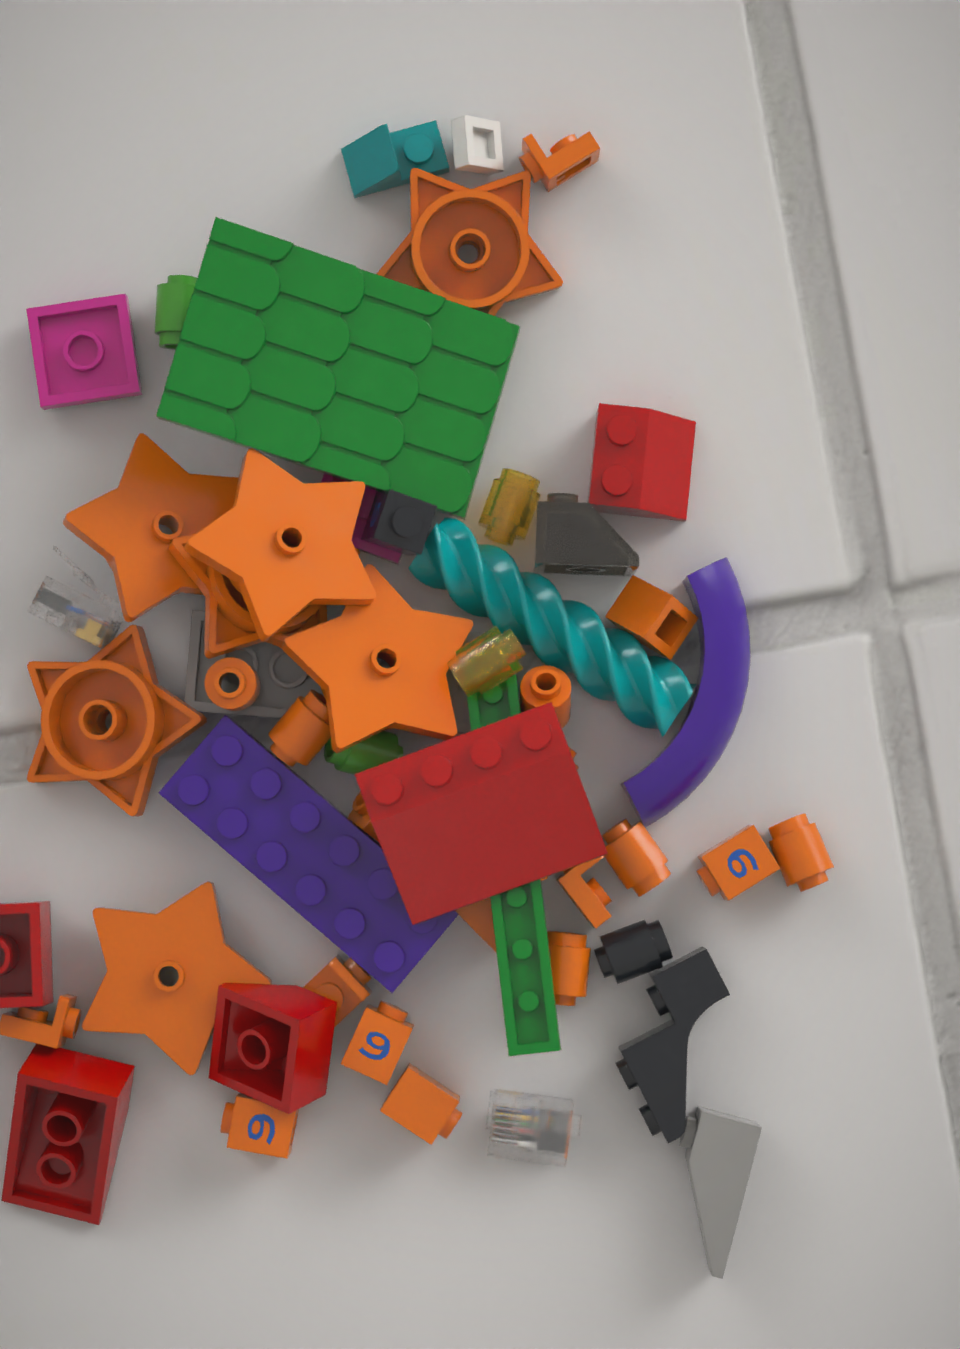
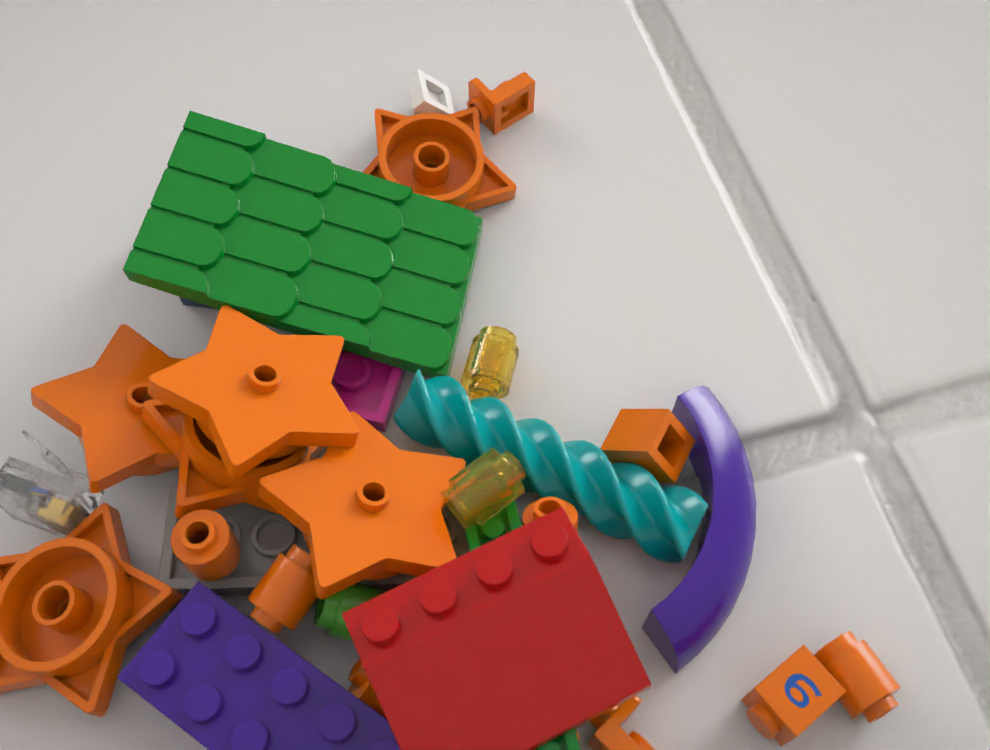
camera: 10 degrees left, 25 degrees down
(84, 351) = (77, 275): dark pink plate -> none
(385, 158) = (350, 117): teal slope -> none
(399, 522) = (381, 374): black brick -> none
(578, 540) = (568, 377): clear smoke slope -> none
(635, 857) = (677, 703): orange brick -> none
(641, 462) = (608, 317): red slope -> none

